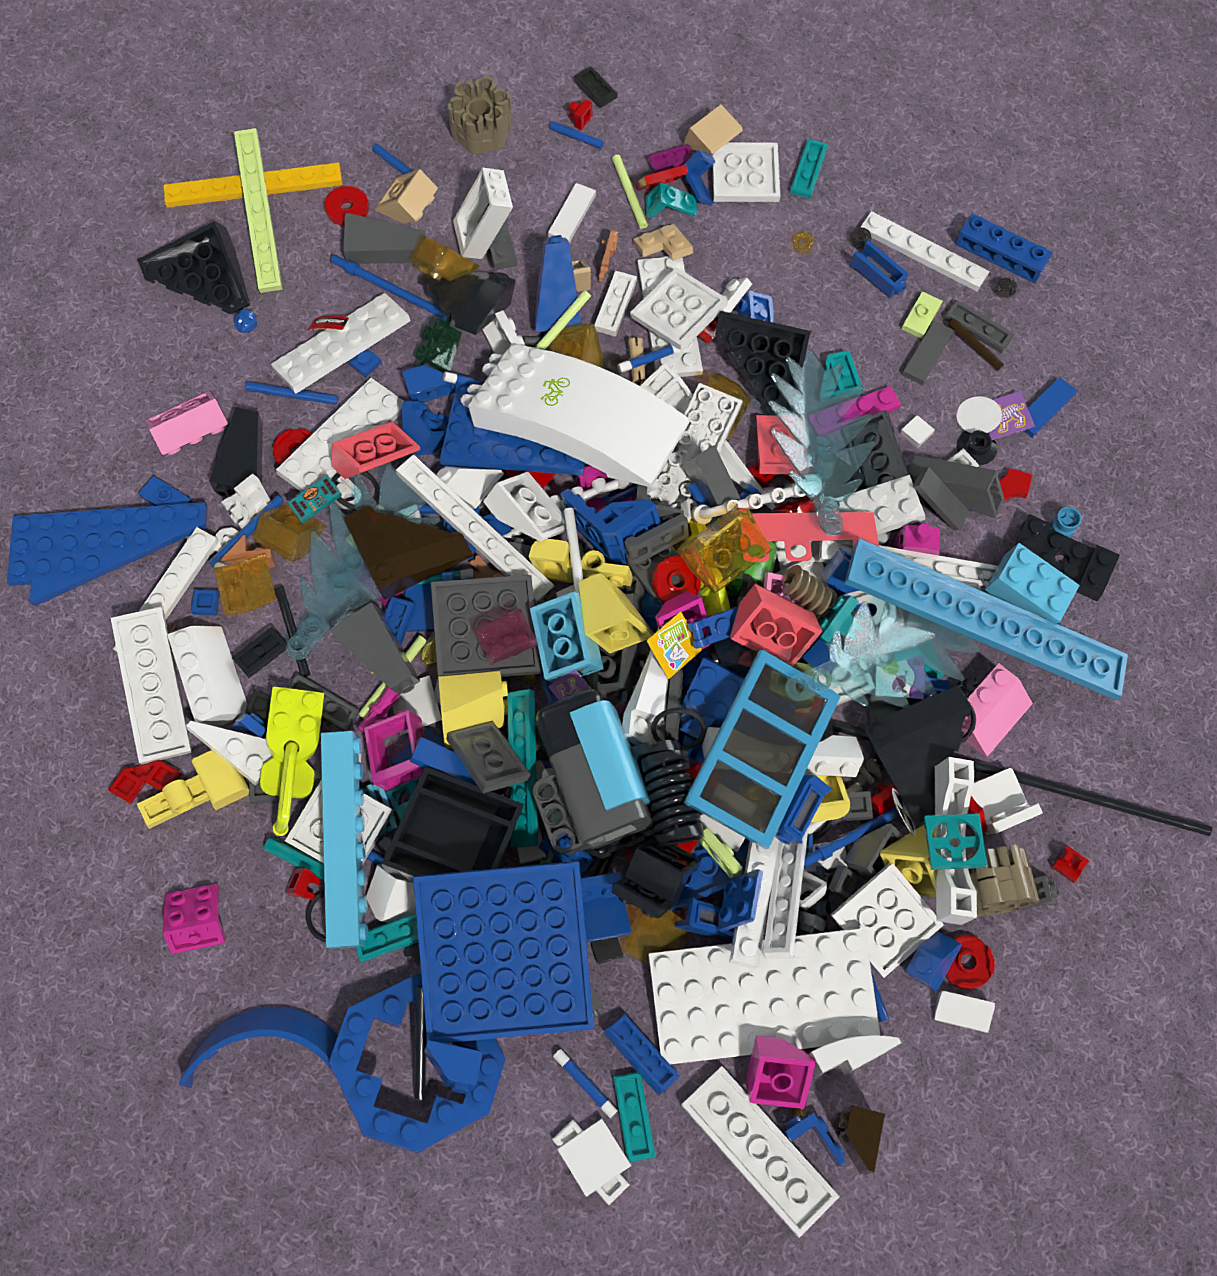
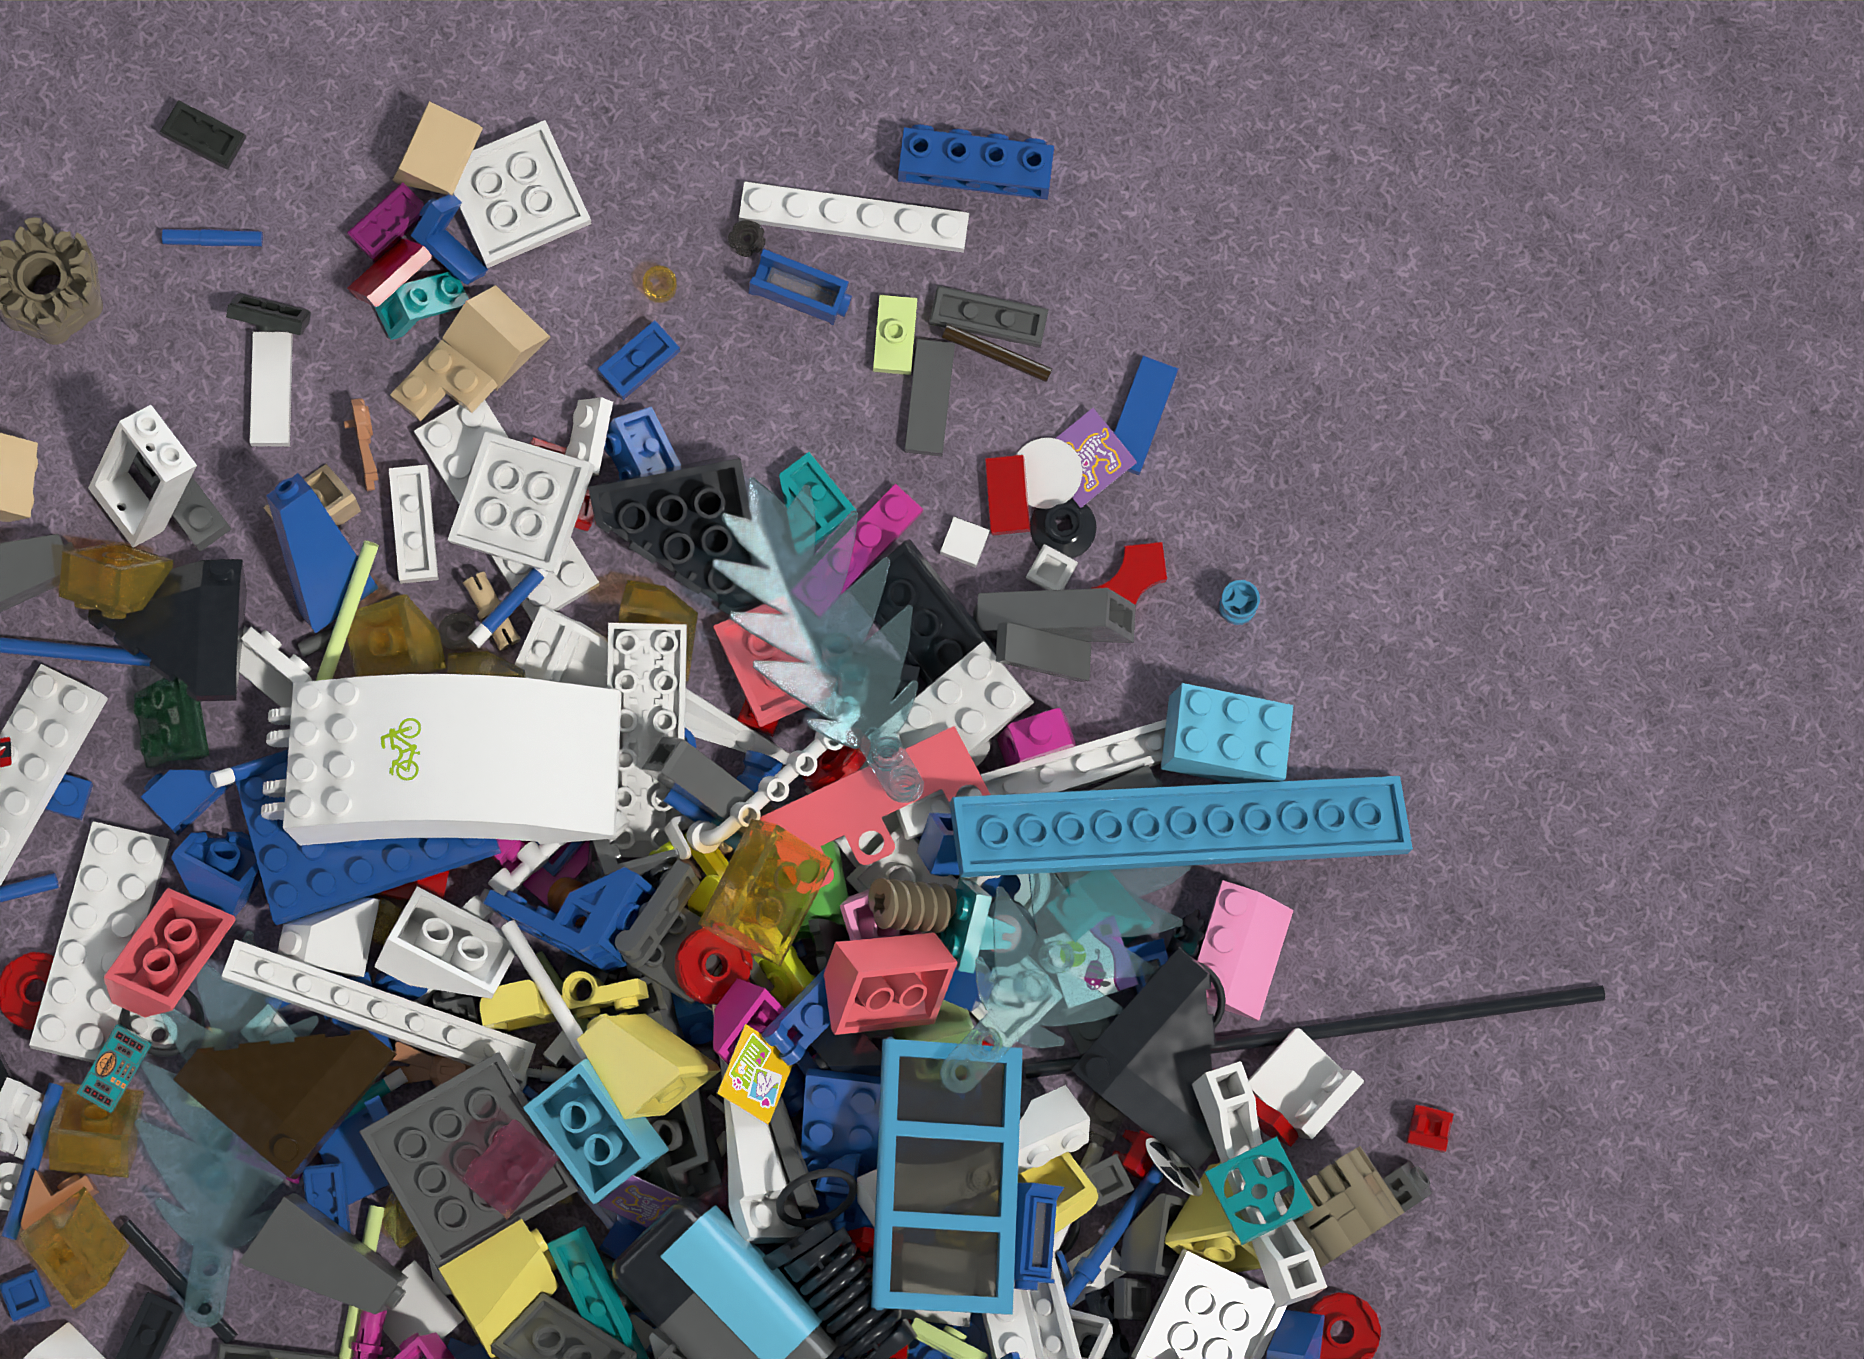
camera: 30 degrees left, 10 degrees up
(580, 113) = (203, 199): red tile -> none
(587, 178) = (268, 315): none -> pearl dark grey plate
(629, 191) = (344, 307): yellowish green piece -> none
(703, 232) = (495, 334): none -> tan slope
(775, 272) = (638, 360): none -> blue plate
(809, 168) = (613, 140): teal tile -> none
(952, 417) = (1007, 495): none -> red tile
(1005, 288) = (1004, 231): clear smoke plate -> none
(1085, 565) = (1295, 659): black piece -> none

